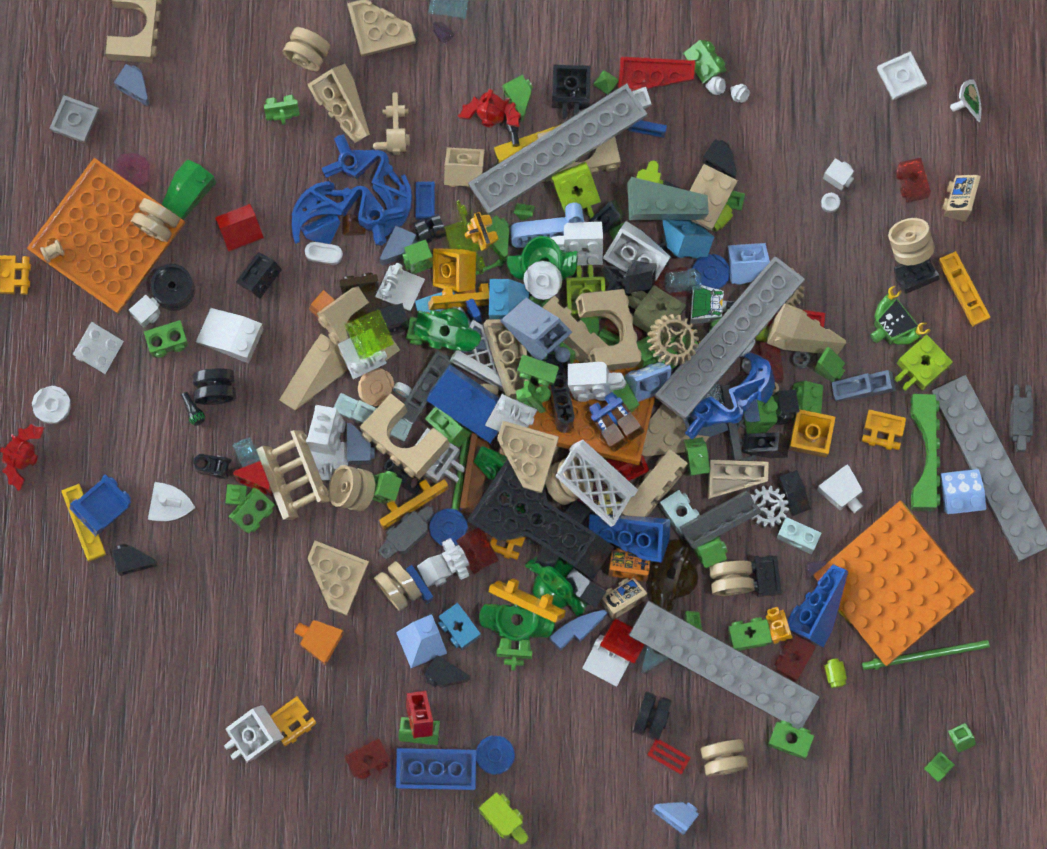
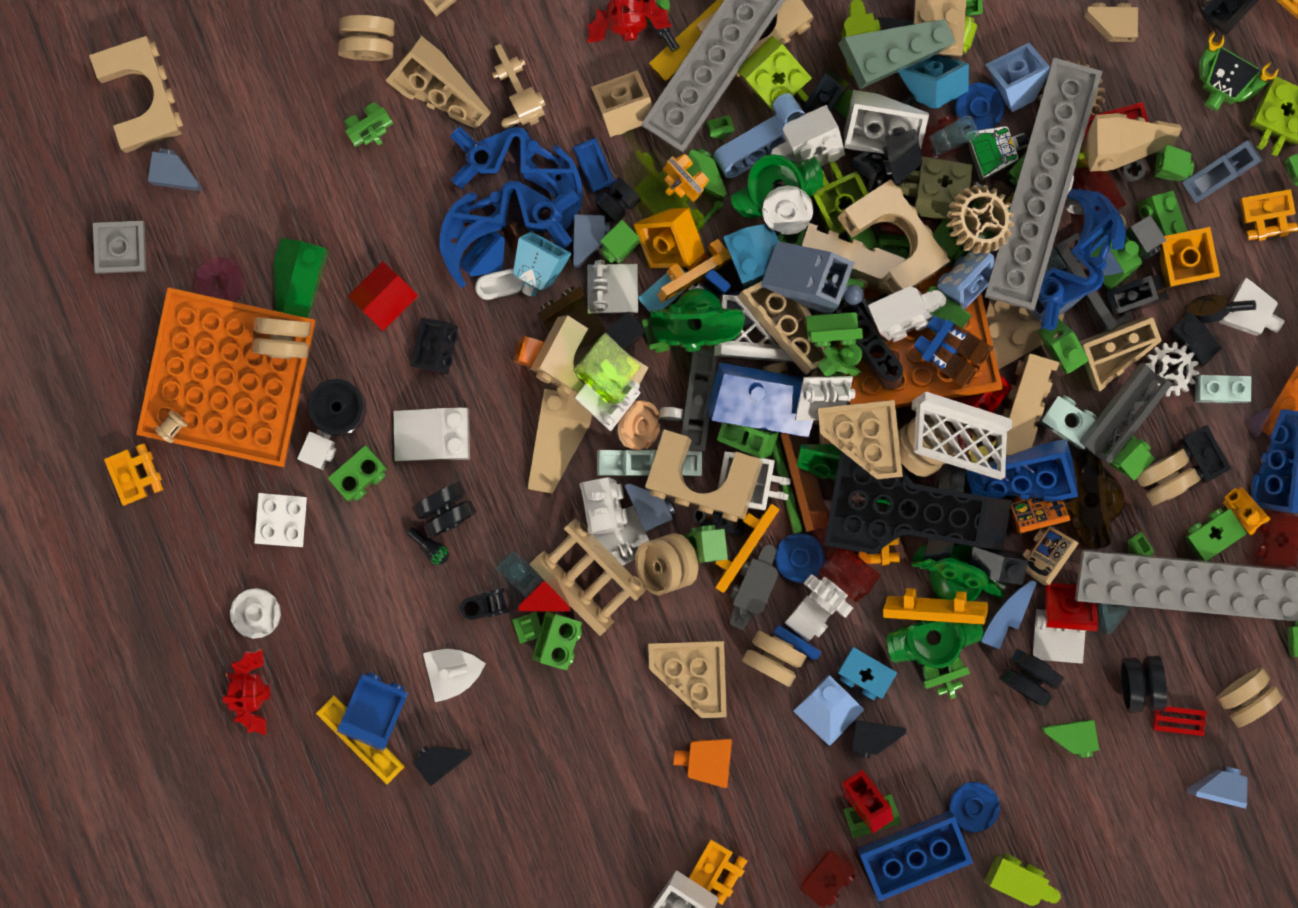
camera: 20 degrees left, 10 degrees up
(356, 247) = (538, 262): none -> medium azure torso
(576, 675) = (1033, 675): none -> black wheel
(587, 734) = (1075, 737): none -> bright green slope
(816, 475) = (1215, 307): none -> black piece
(830, 253) = (1114, 23): none -> tan slope

